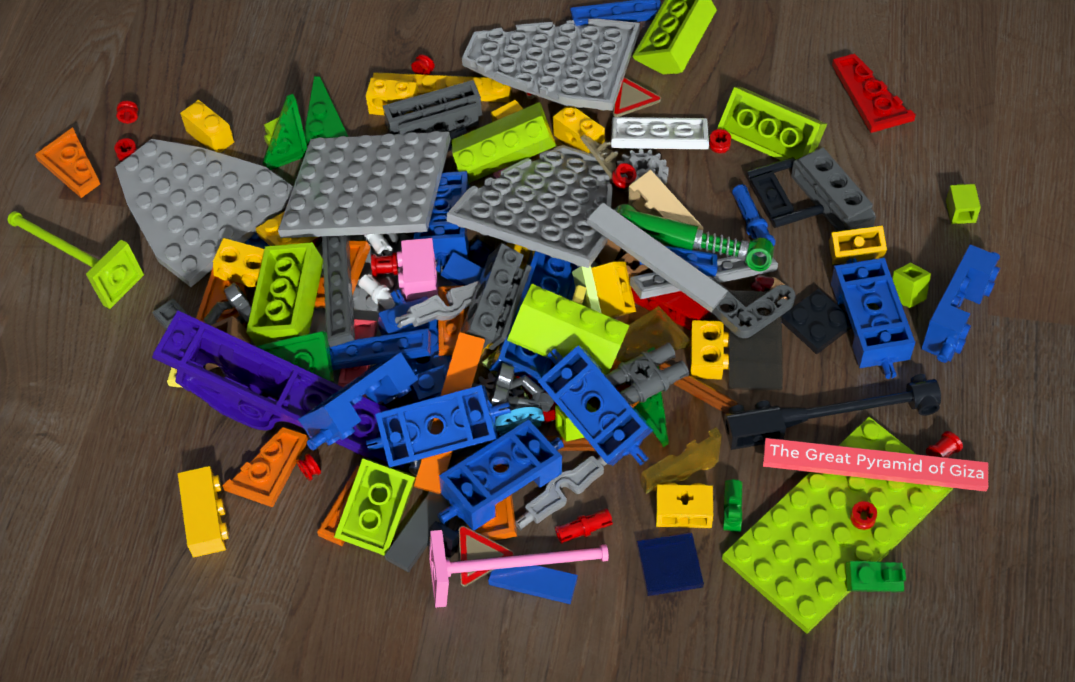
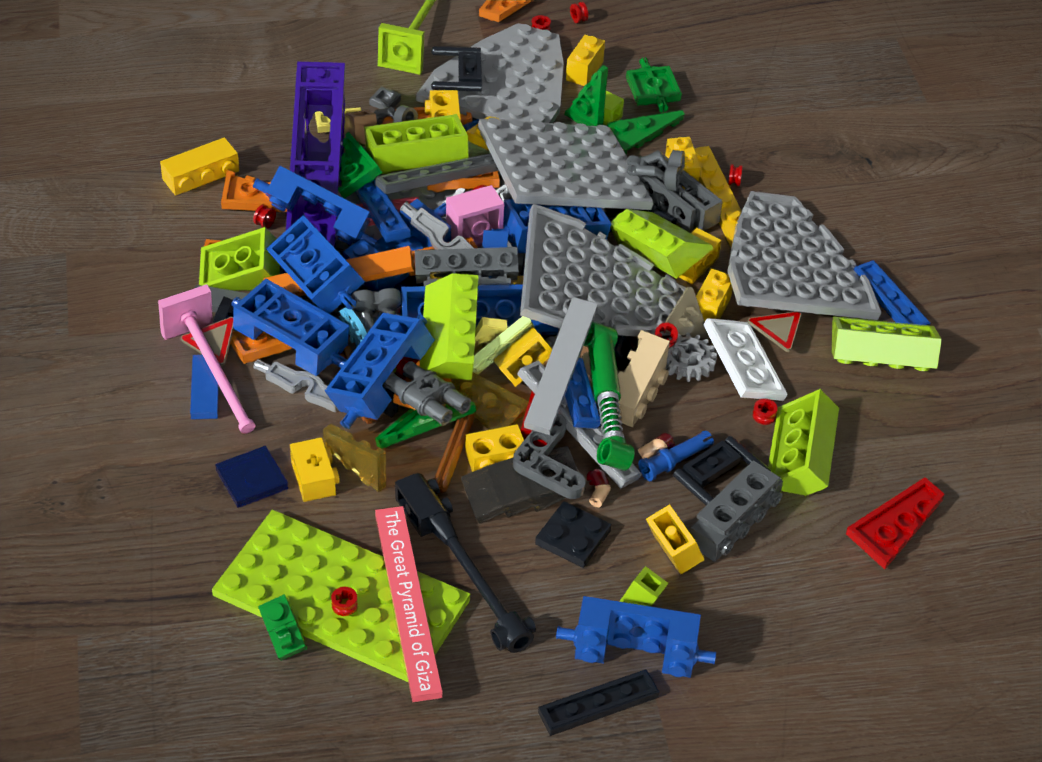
camera: 65 degrees right, 10 degrees down
(184, 222) = (468, 69): none -> black plate
(267, 87) = (653, 85): none -> green plate
(419, 96) = (673, 171): none -> dark grey piece
(583, 525) = (269, 405): red pin -> none
(732, 505) = (314, 508): green bar -> none
(738, 225) = (663, 441): none -> light nougat arm
(880, 334) = (567, 574): blue brick -> none
(945, 446) = (455, 662): red bush -> none
(963, 203) = (783, 627): lime brick -> none
(1004, 357) = (598, 702): none -> black tile

